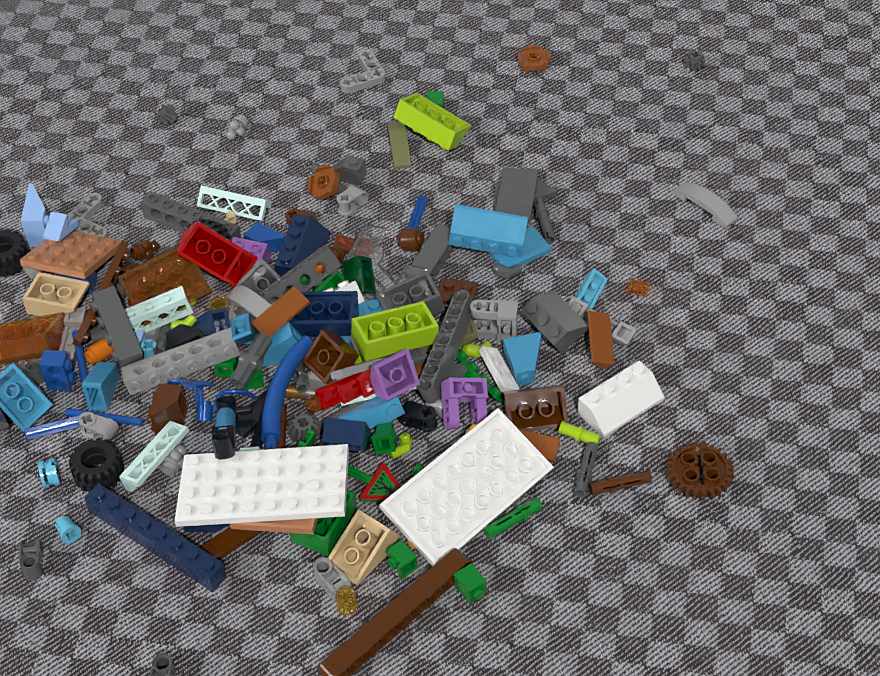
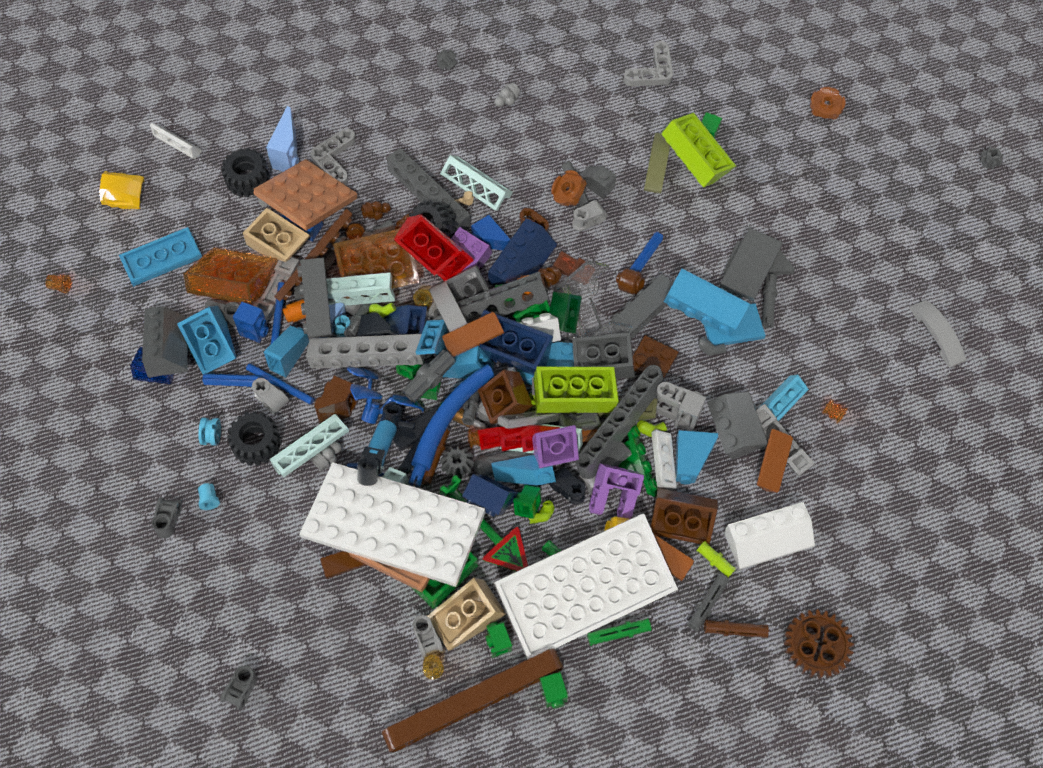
camera: 15 degrees right, 15 degrees up
(59, 226) = (302, 161): light blue slope -> none
(156, 537) = (282, 535): dark blue brick -> none

